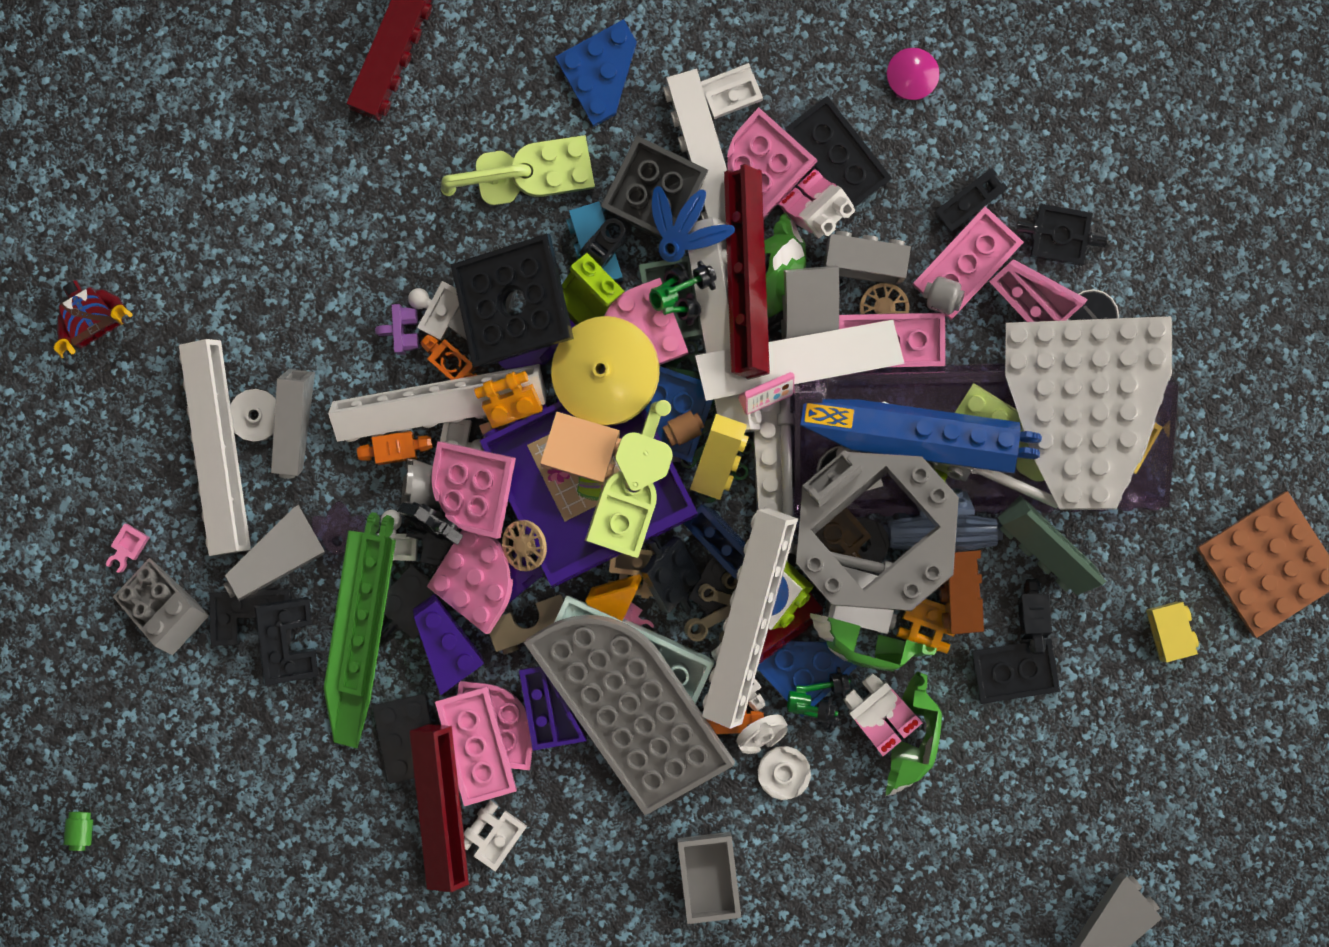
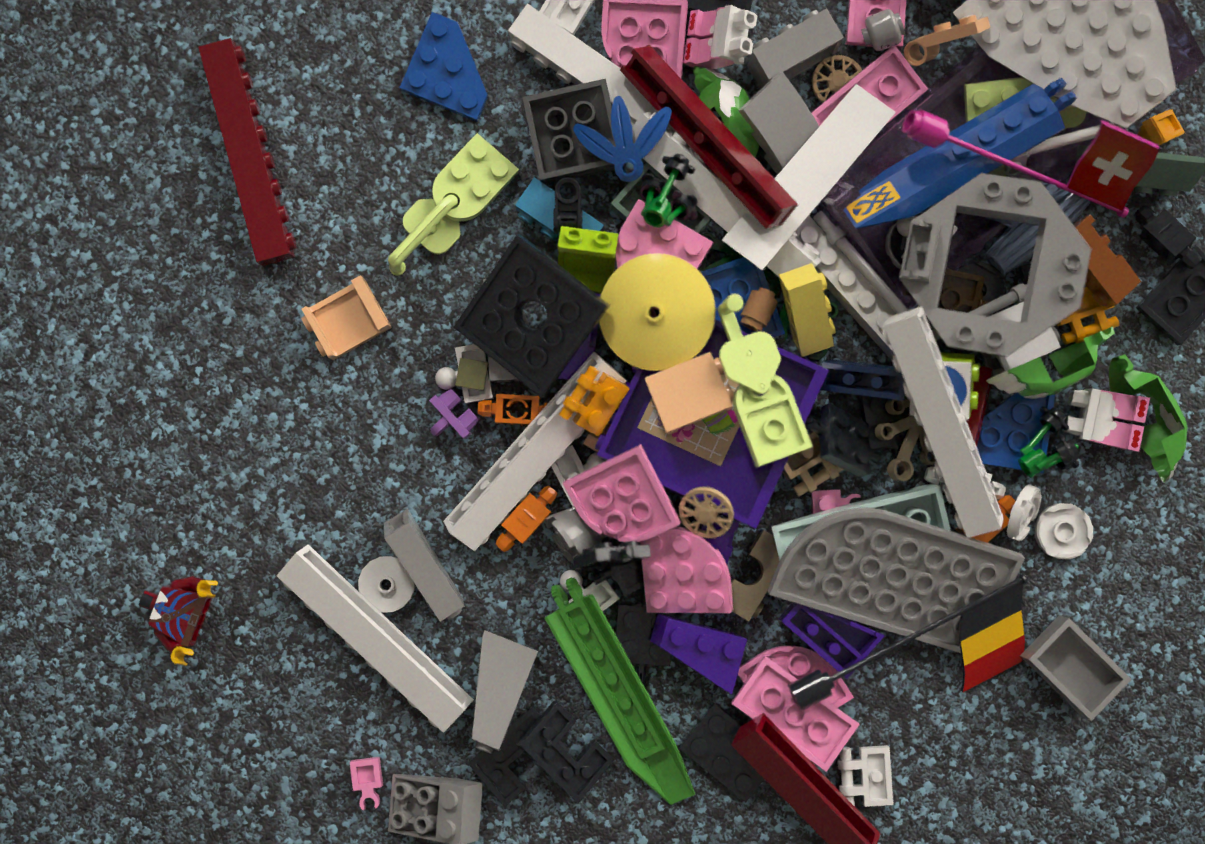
camera: 35 degrees left, 0 degrees up
(337, 524) = (528, 619): clear purple plate -> none
(379, 197) = (345, 319): none -> light nougat panel
(438, 310) = (472, 374): none -> olive tile
(614, 597) = (813, 495): light orange slope -> none
(663, 804) = (988, 640): none -> flag
(767, 393) = (807, 223): slope -> none
(969, 334) = (942, 33): none -> light nougat plate
(1019, 527) = (1102, 174): none -> flag
(1094, 532) = (1161, 128): none -> light orange tile

